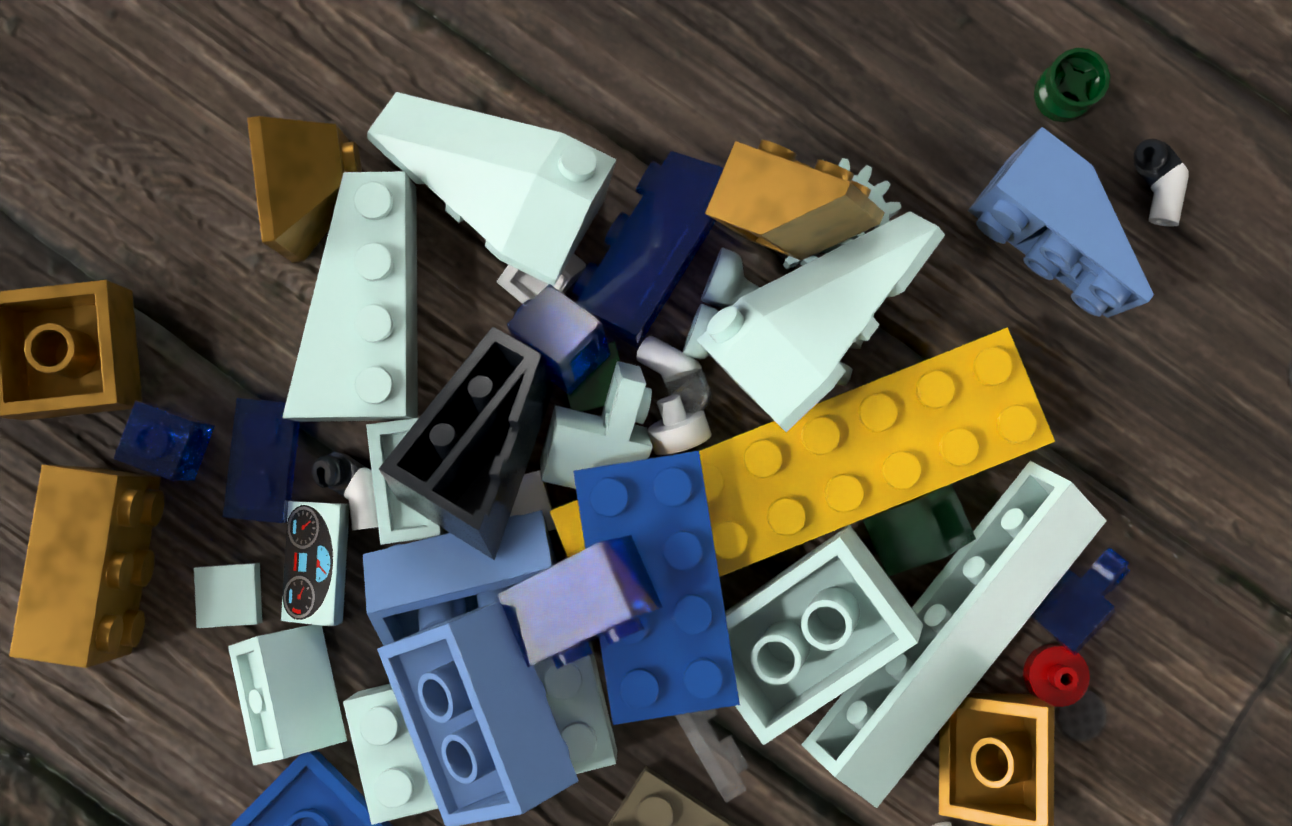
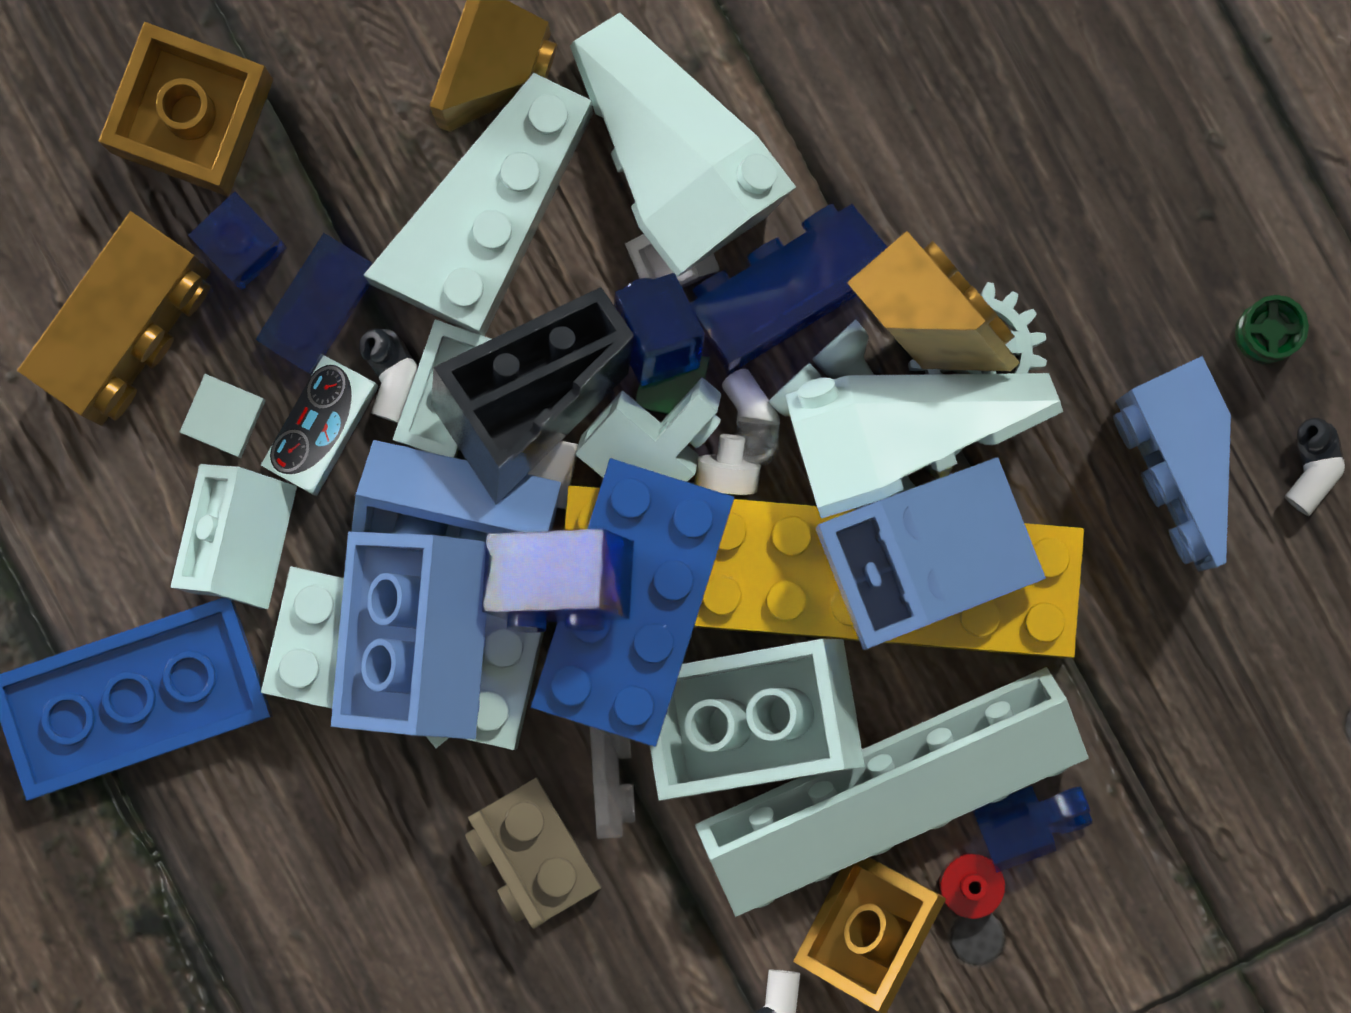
camera: 30 degrees right, 0 degrees up
(894, 417) = (929, 552): none -> medium blue slope
(919, 530) = (908, 678): clear green brick -> none

